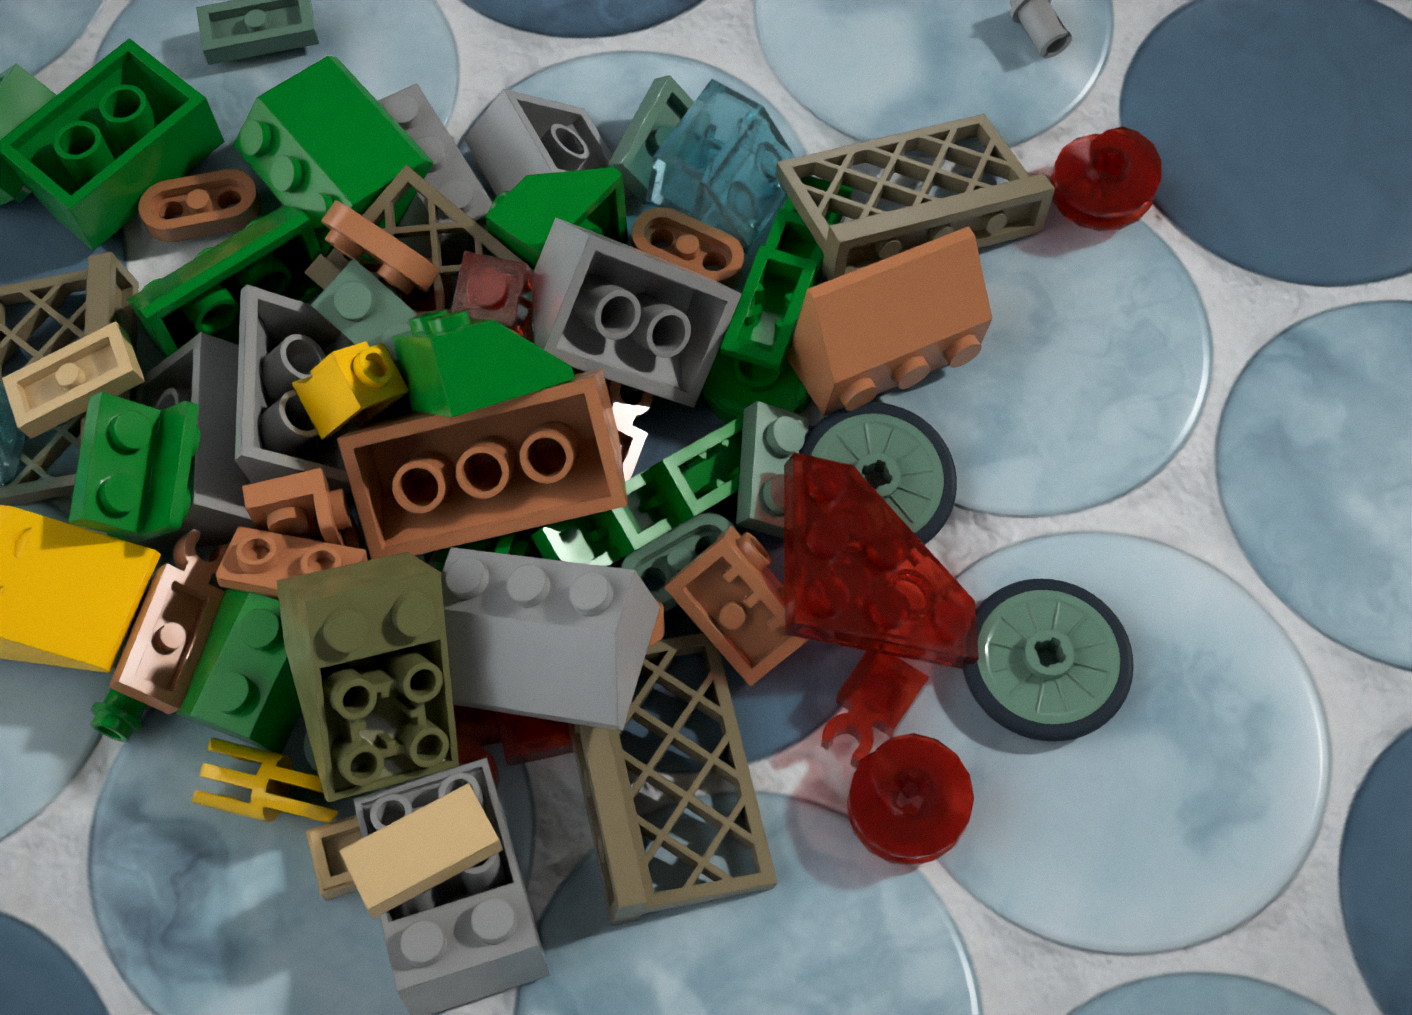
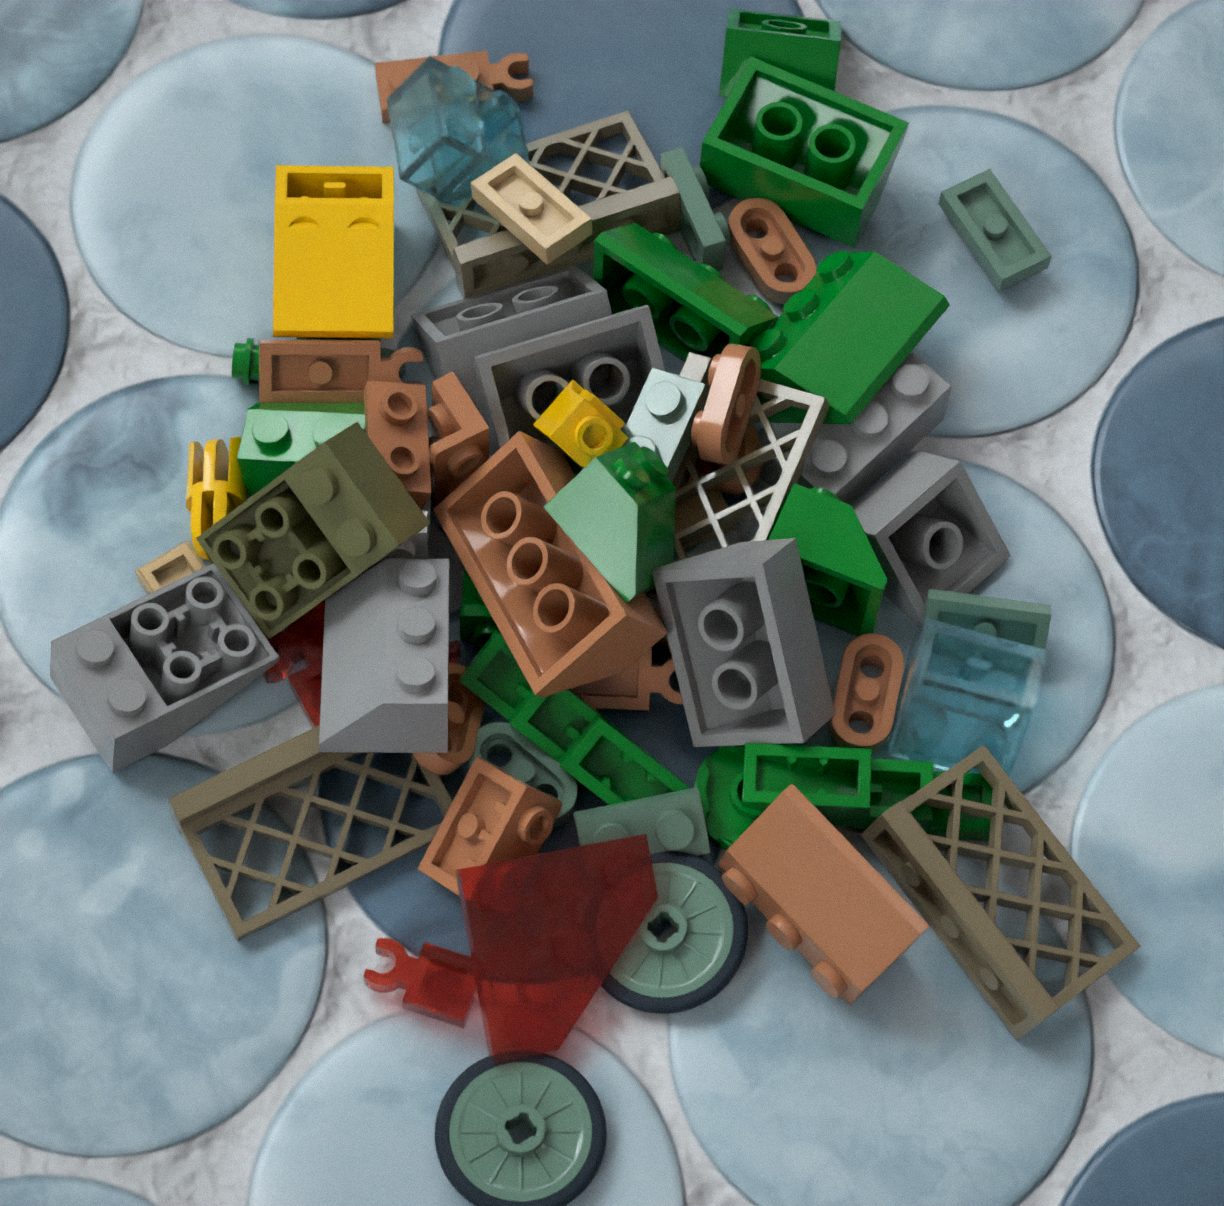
camera: 70 degrees right, 0 degrees up
(134, 468) = (455, 283): green bracket -> none
(144, 253) = (701, 229): none -> sand green plate
(420, 850) = (171, 621): tan tile -> none
(494, 290) = (709, 512): clear red brick -> none
(914, 767) = (338, 1062): clear red piece -> none
(1106, 179) = (1094, 1113): clear red piece -> none

